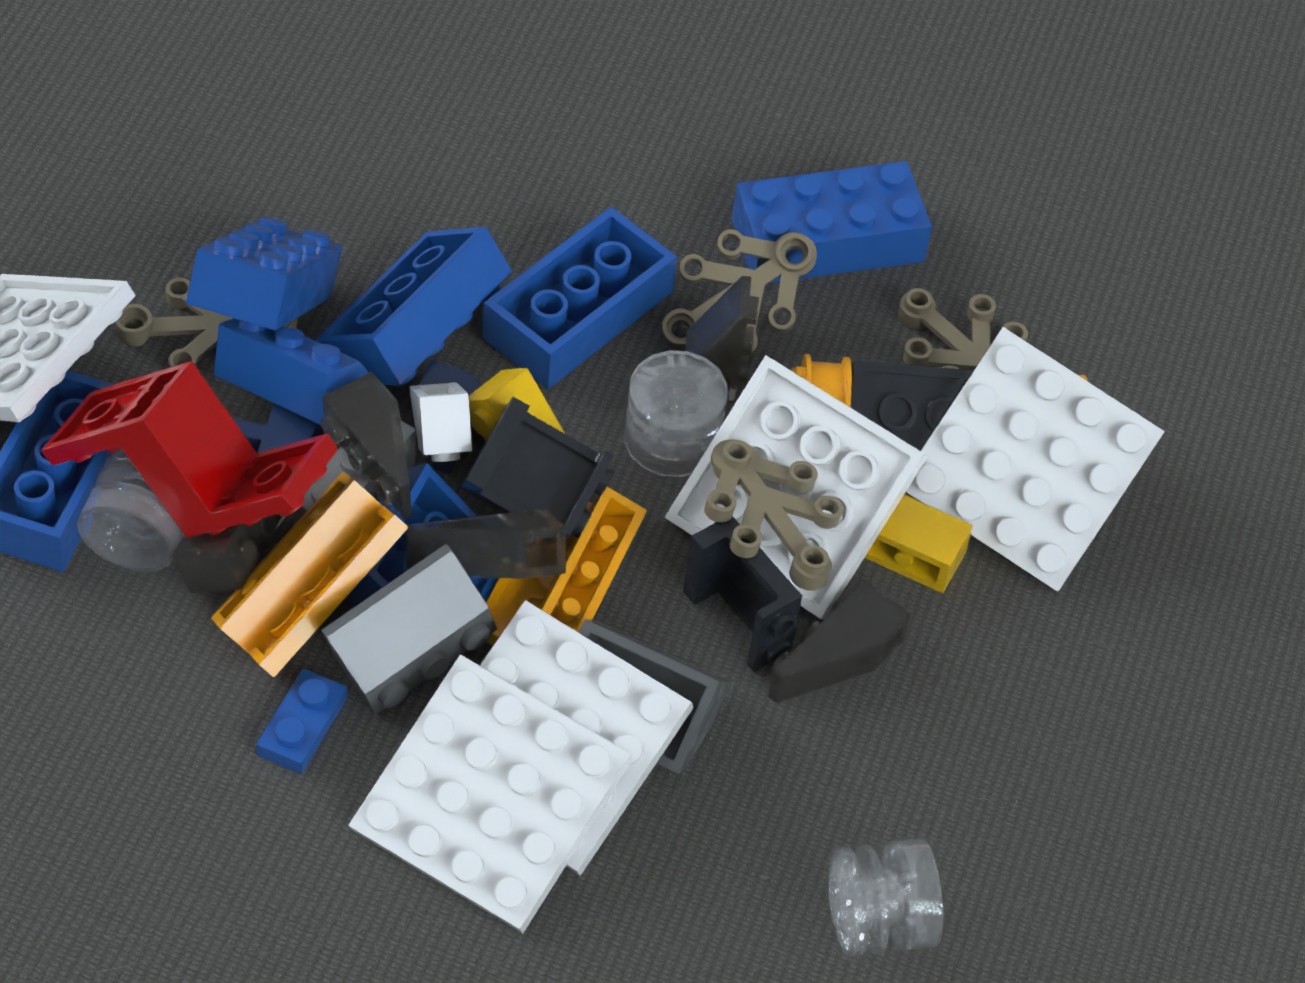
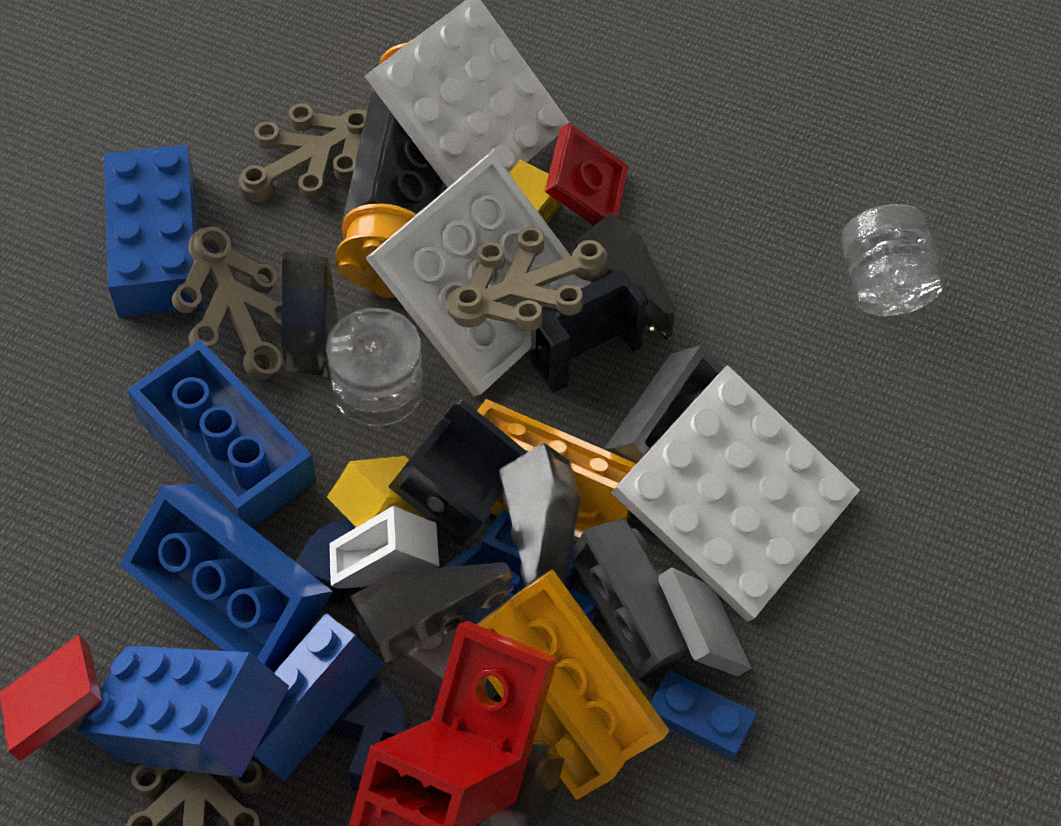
camera: 80 degrees left, 5 degrees up
(290, 199) = (49, 698): none -> red tile
(384, 698) = (703, 622): none -> light grey tile
(491, 793) = (798, 545): white plate -> none
(964, 597) = (586, 176): none -> red tile

